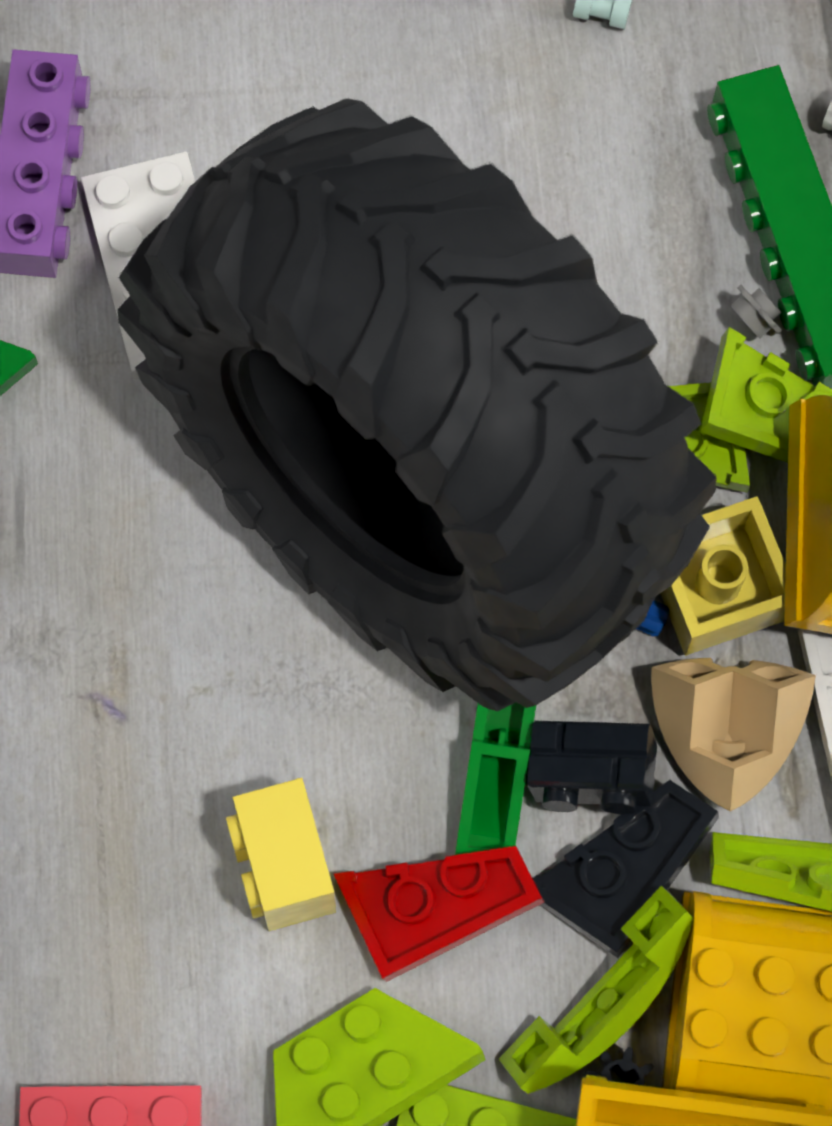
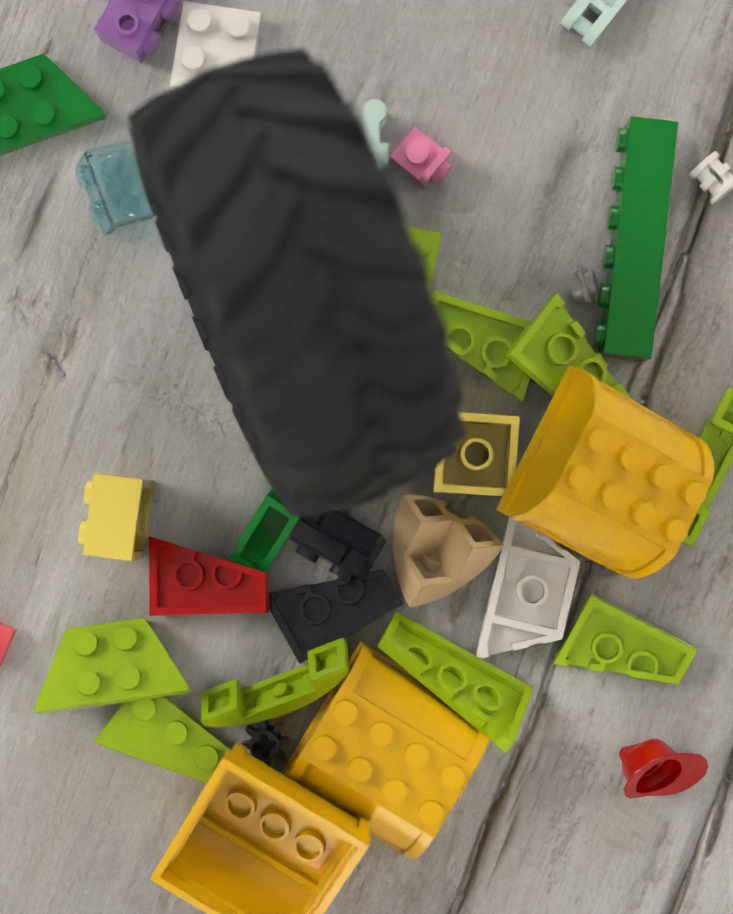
camera: 25 degrees right, 15 degrees up
(89, 440) = (113, 186): none -> clear light blue bracket

